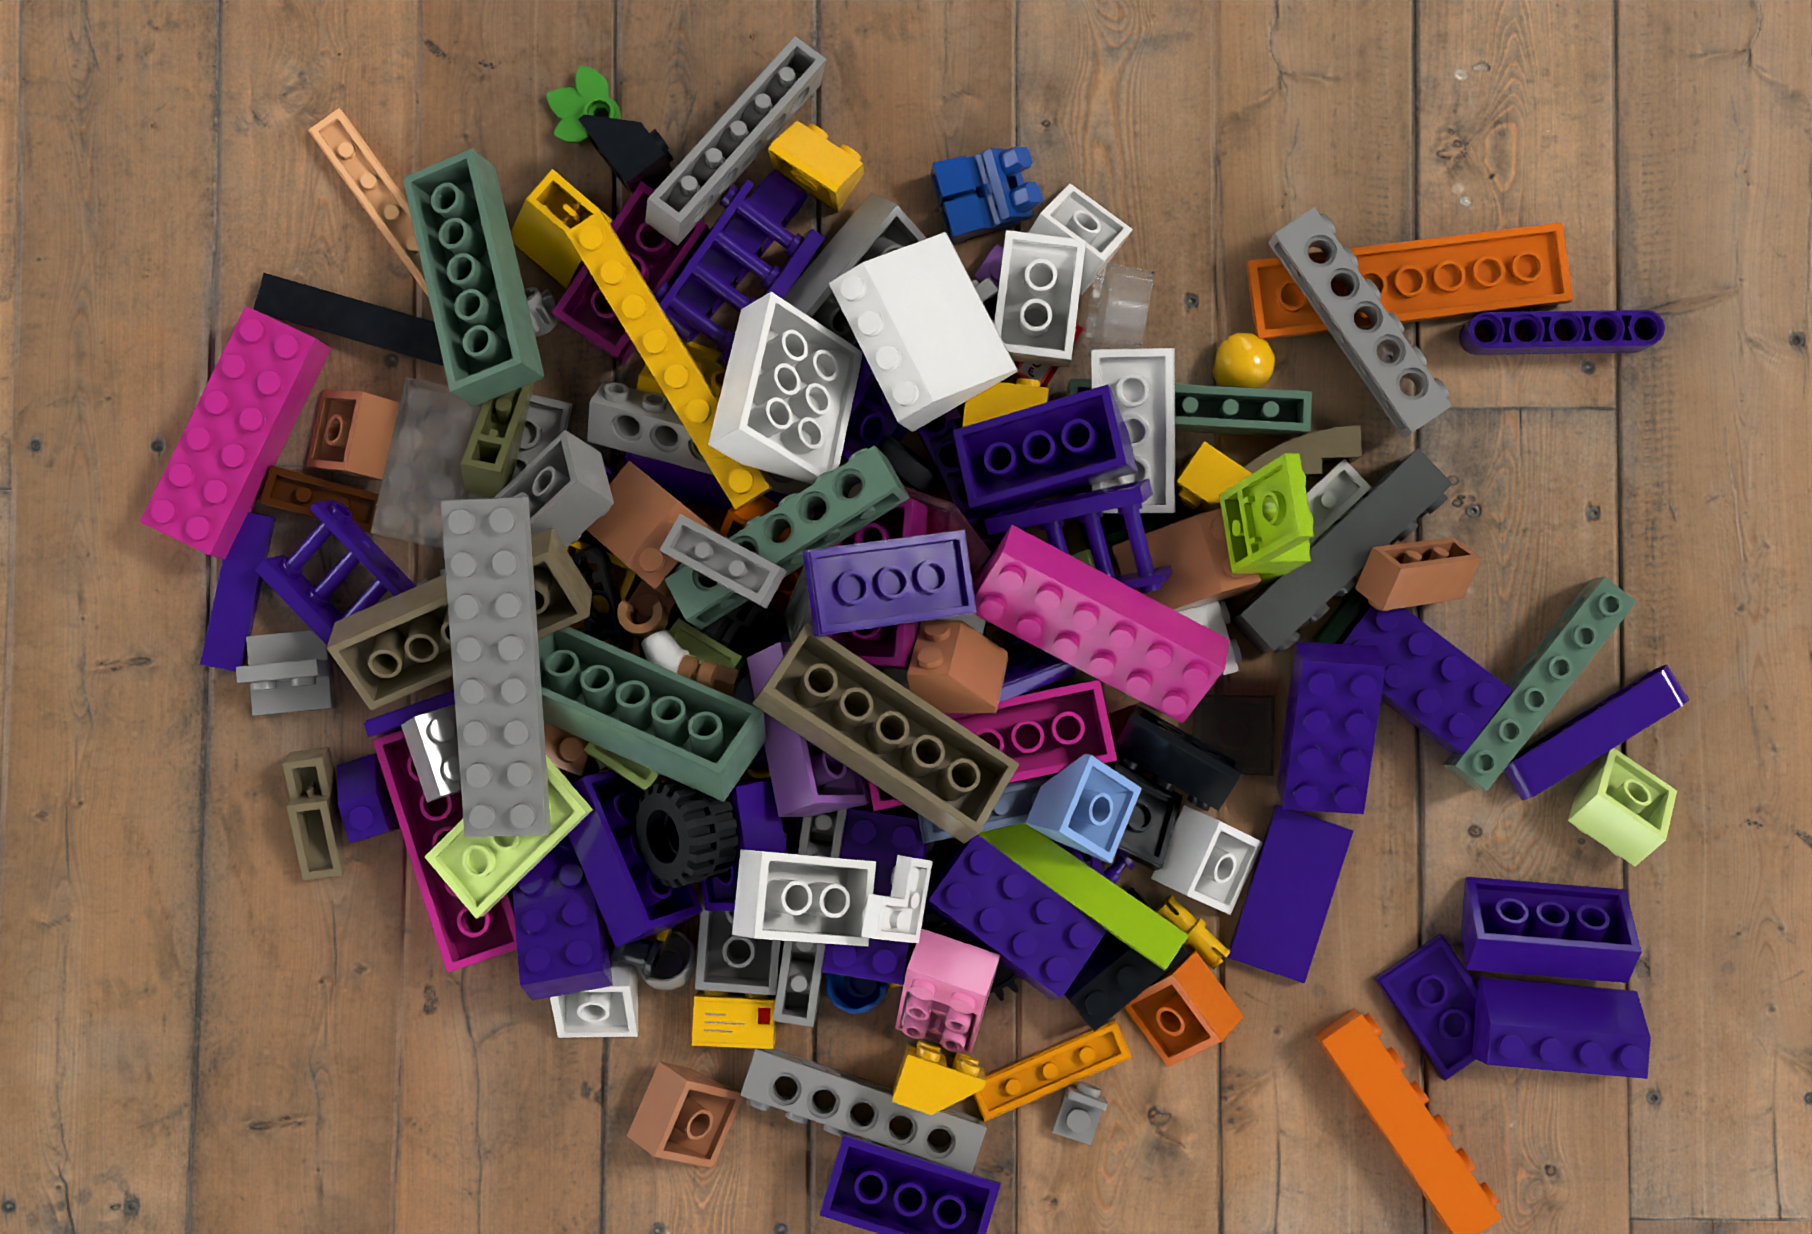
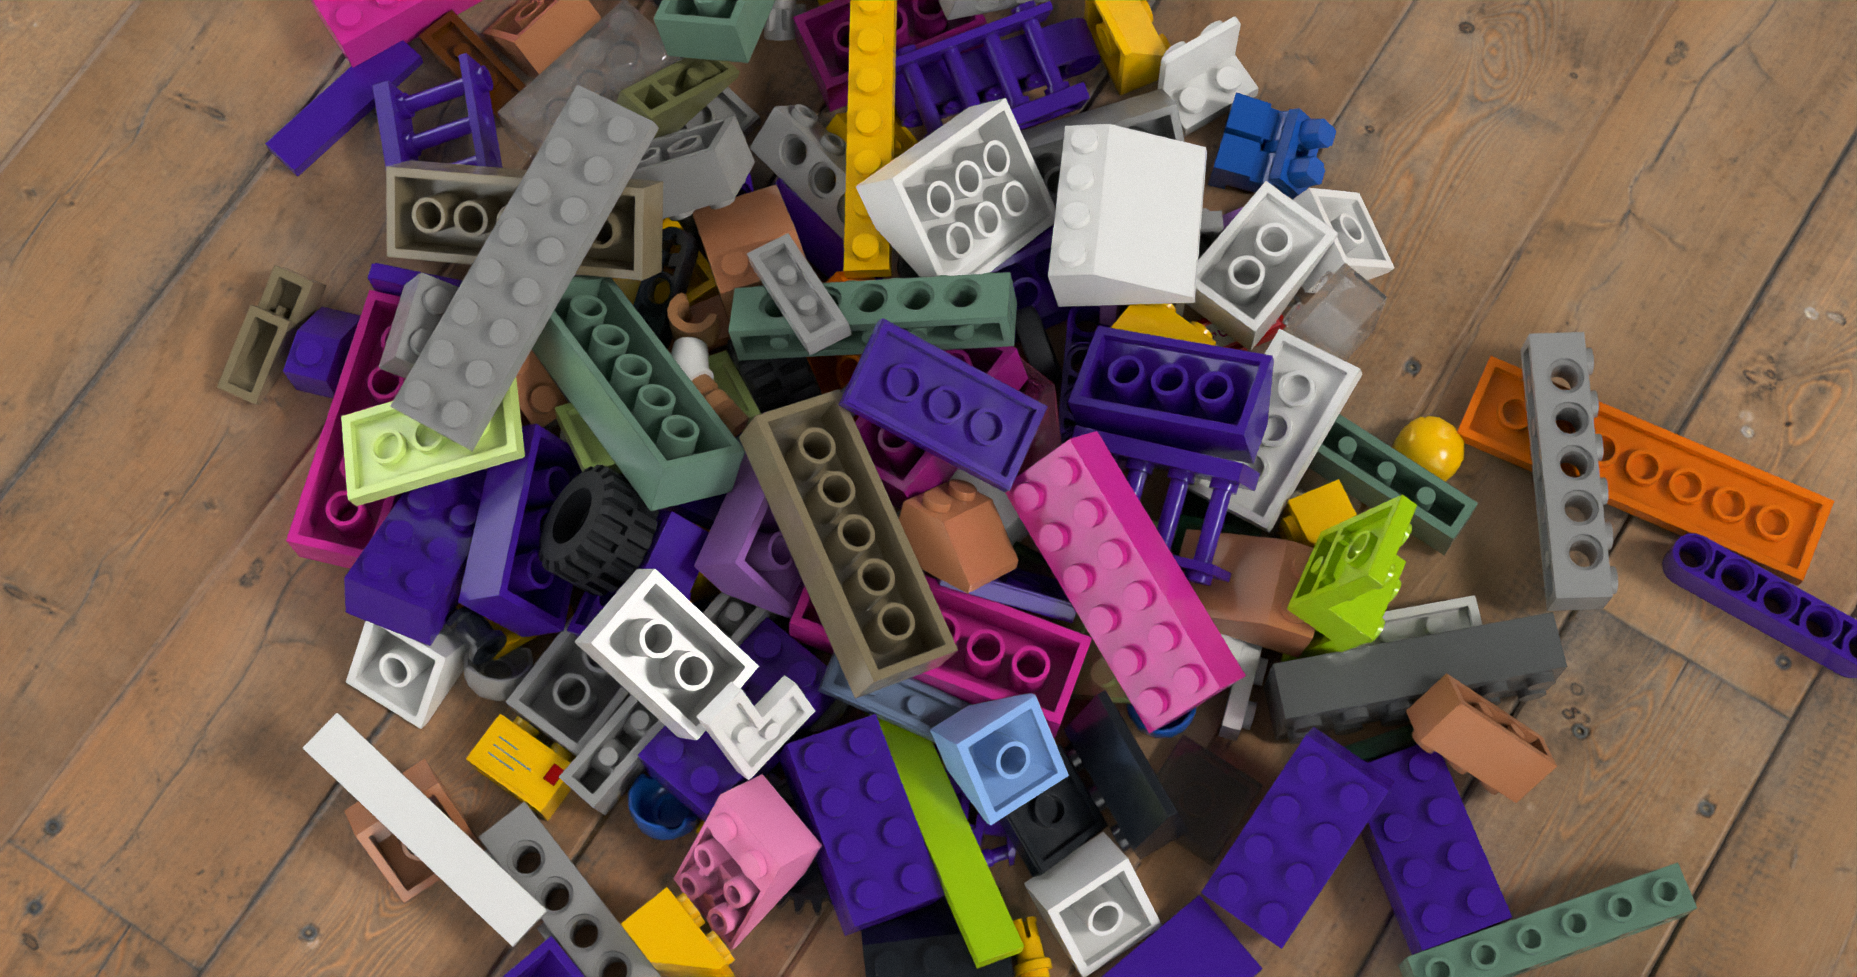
camera: 30 degrees right, 15 degrees down
(288, 673) = (335, 199): light grey bracket -> none
(701, 1121) = (425, 829): none -> white tile
(901, 162) = (1205, 75): none -> white bracket
(1316, 448) = (1442, 566): dark tan slope -> none

